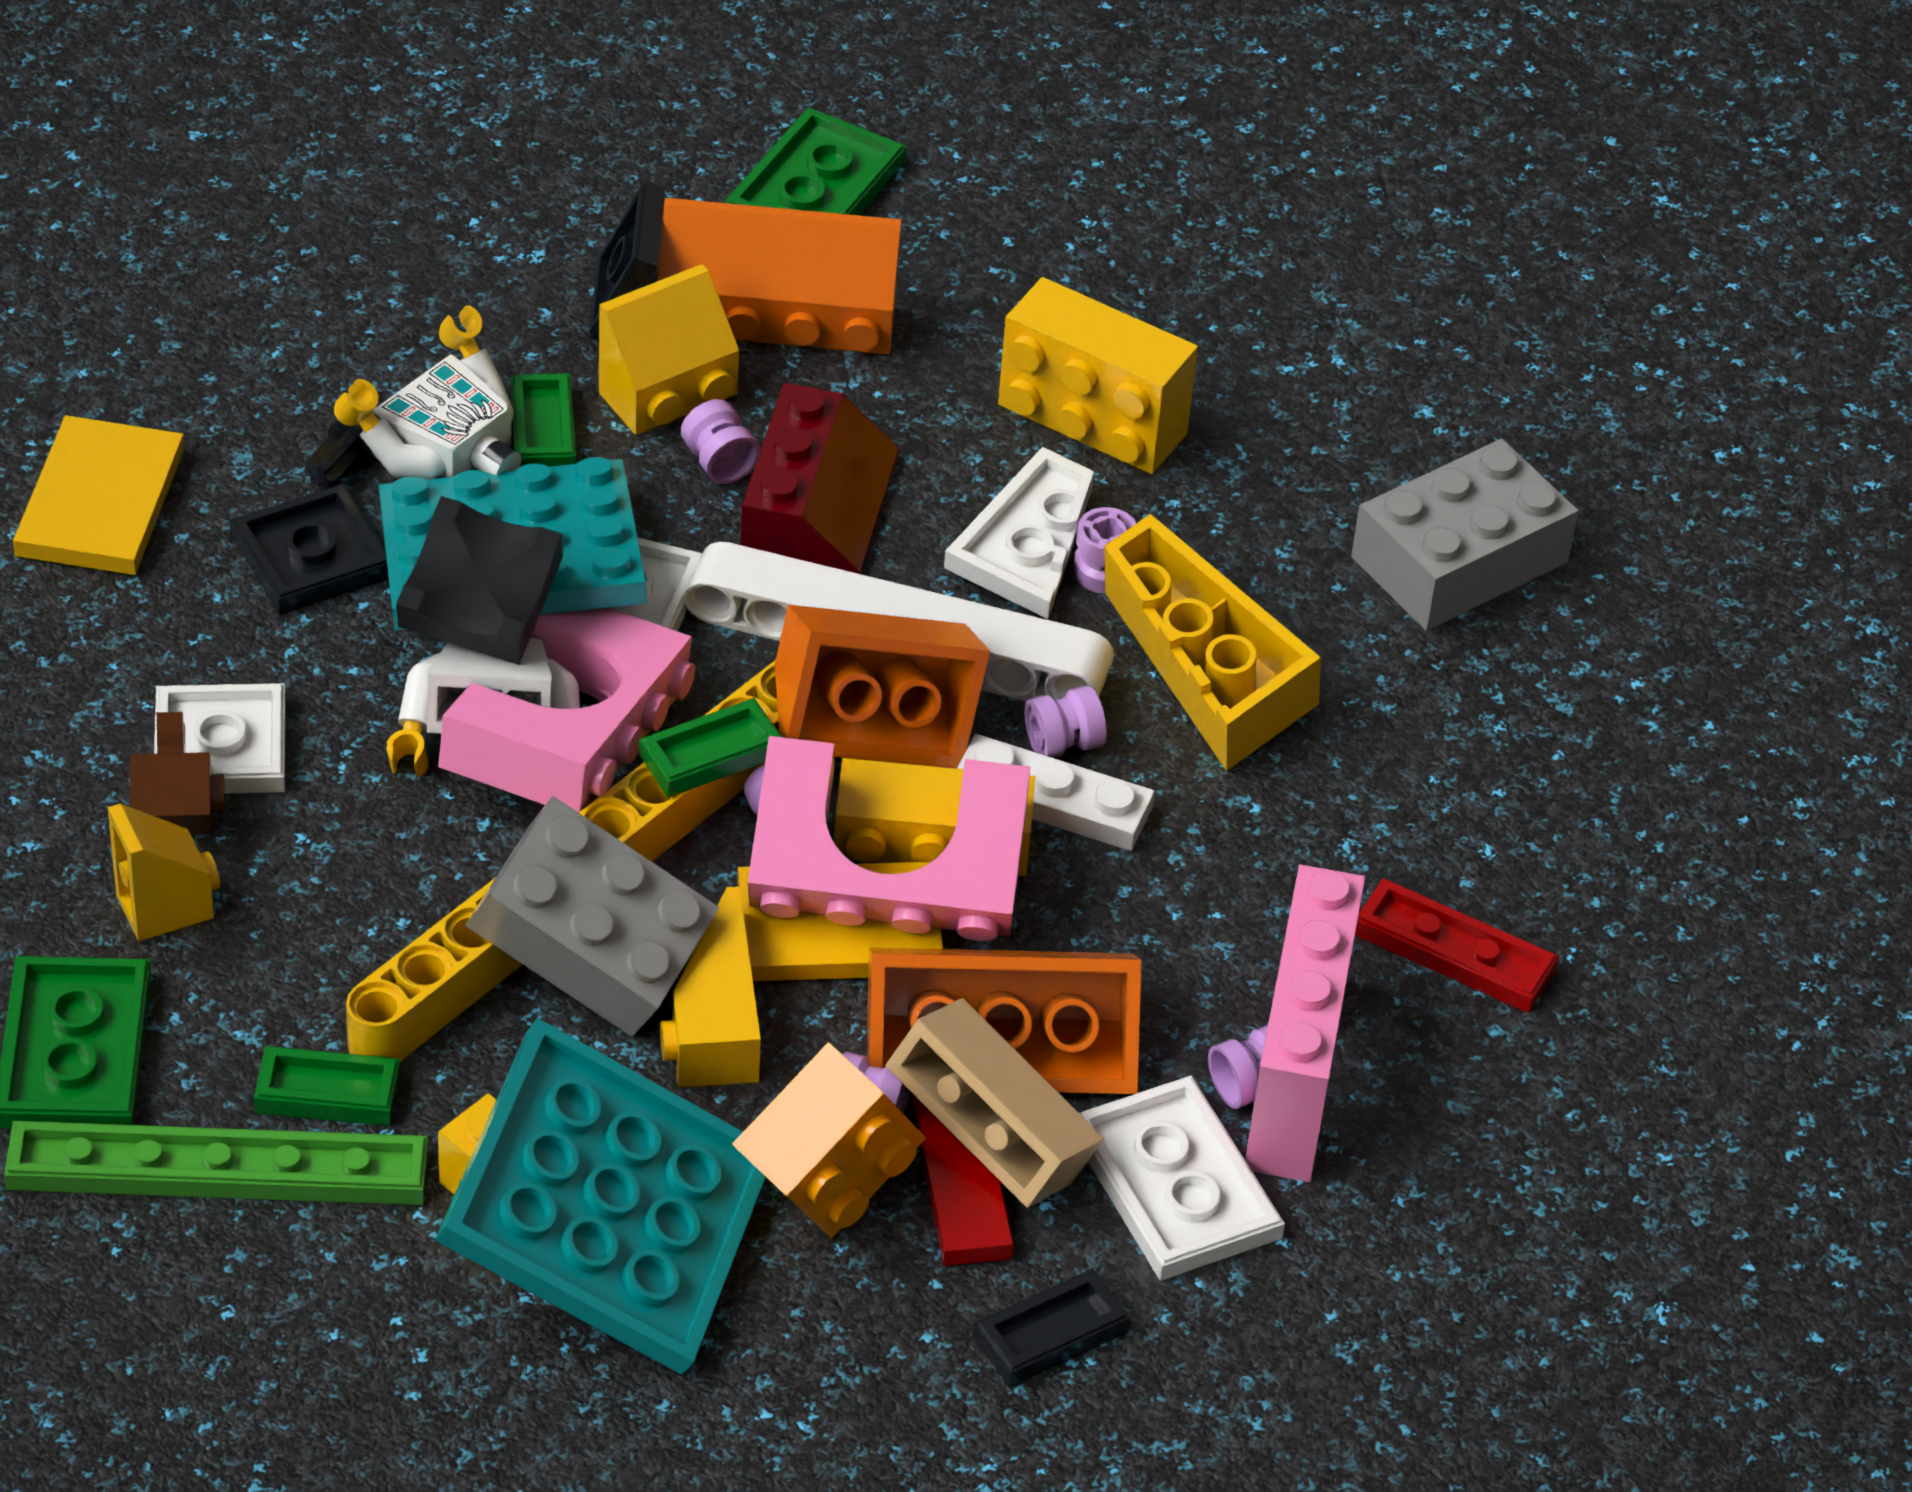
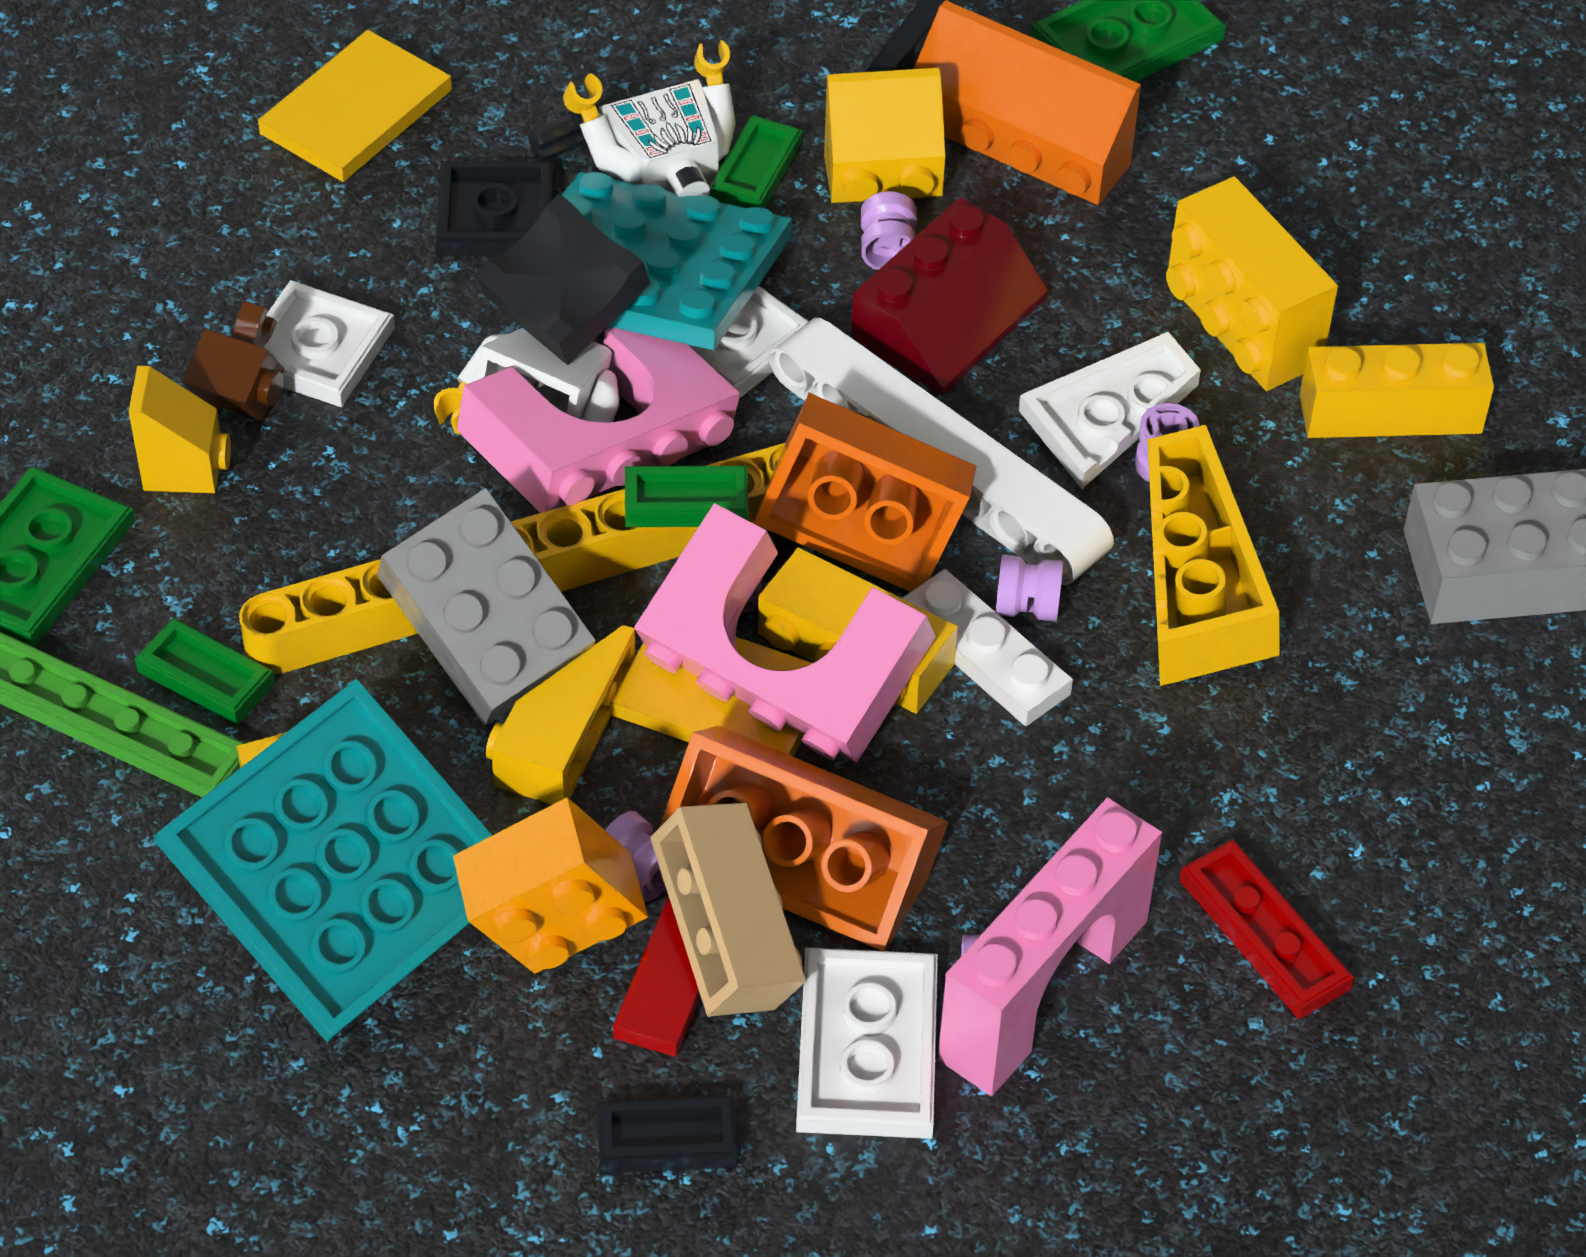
camera: 30 degrees right, 5 degrees up
(1278, 430) = (1396, 390): none -> yellow brick

